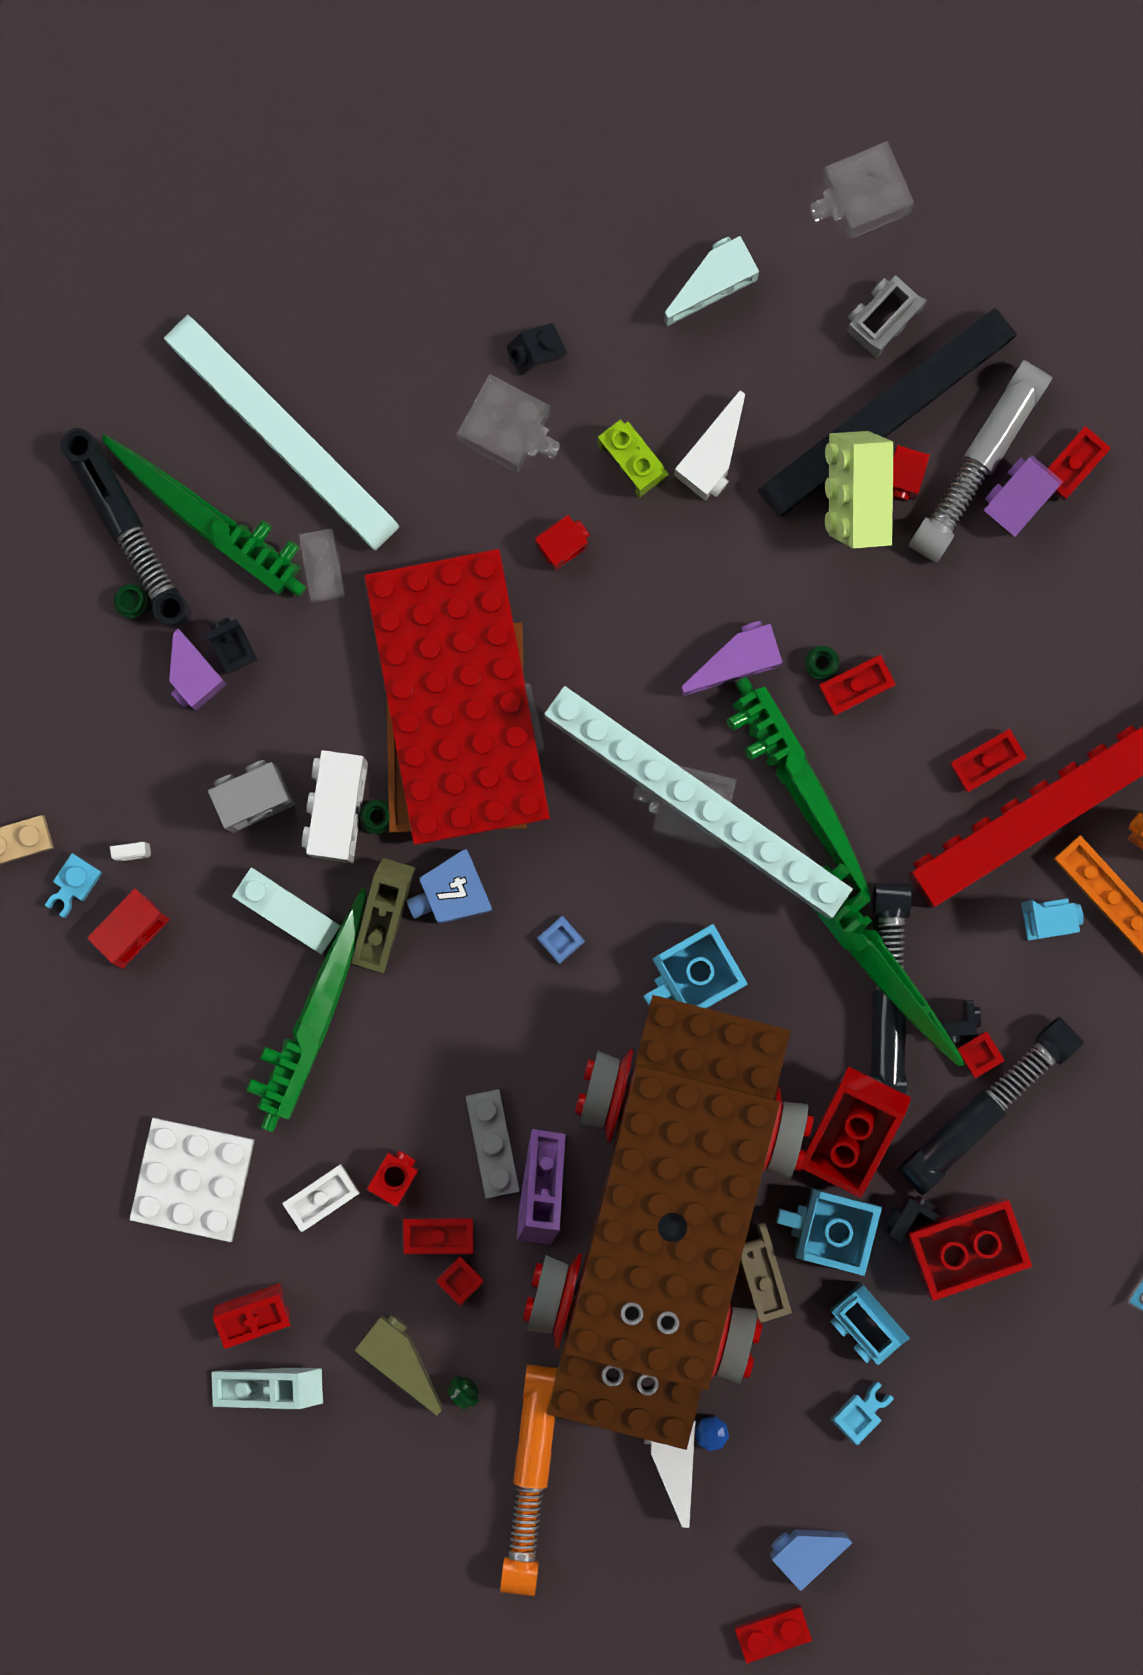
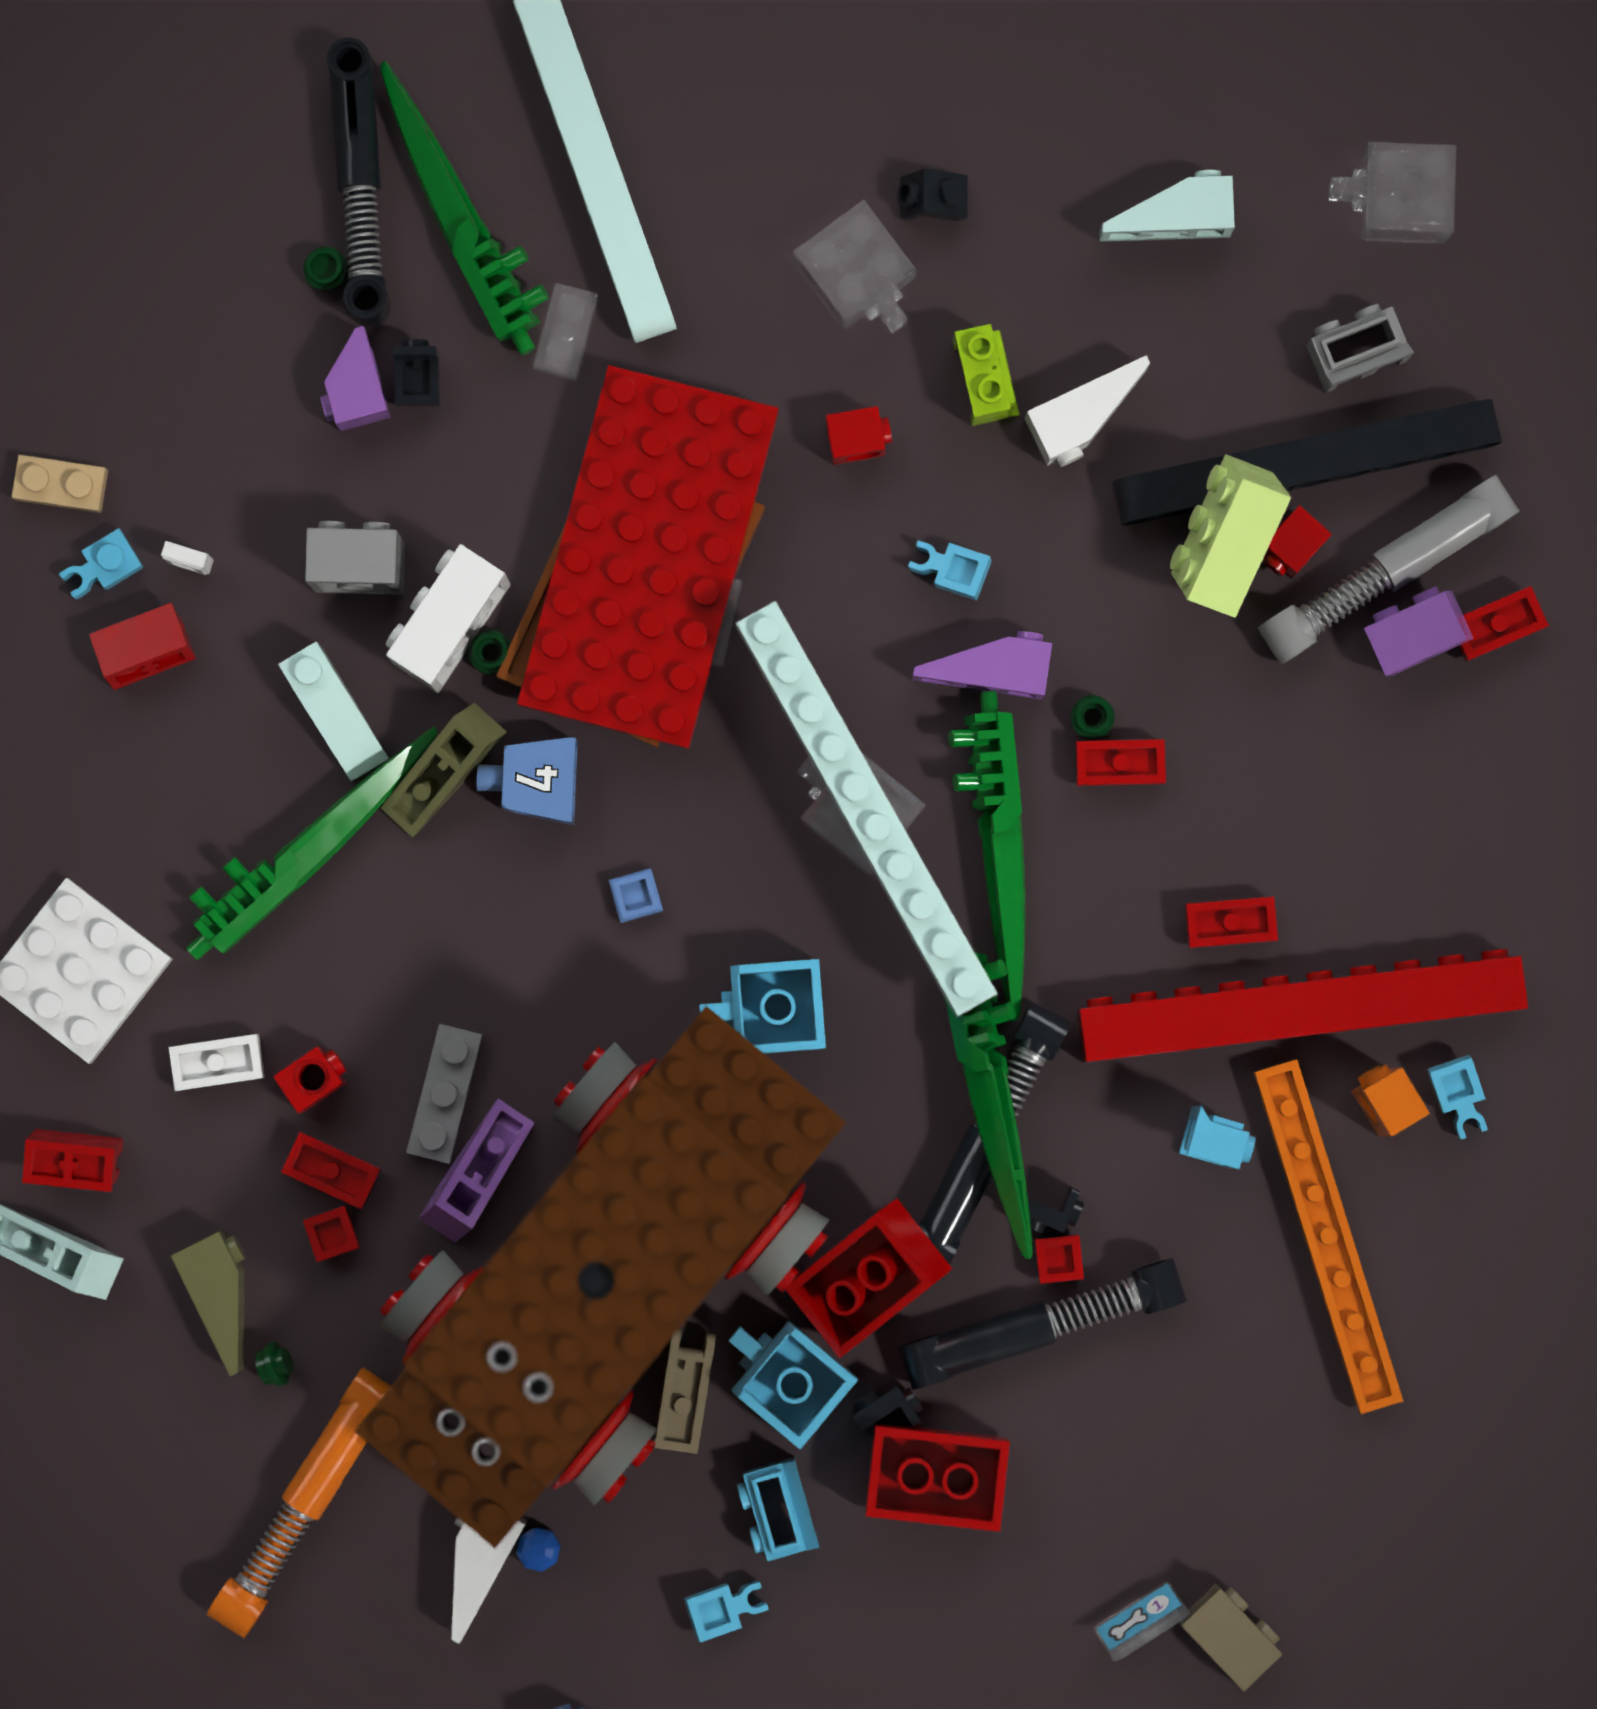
camera: 20 degrees right, 0 degrees up
(679, 604) = (957, 571): none -> medium azure plate

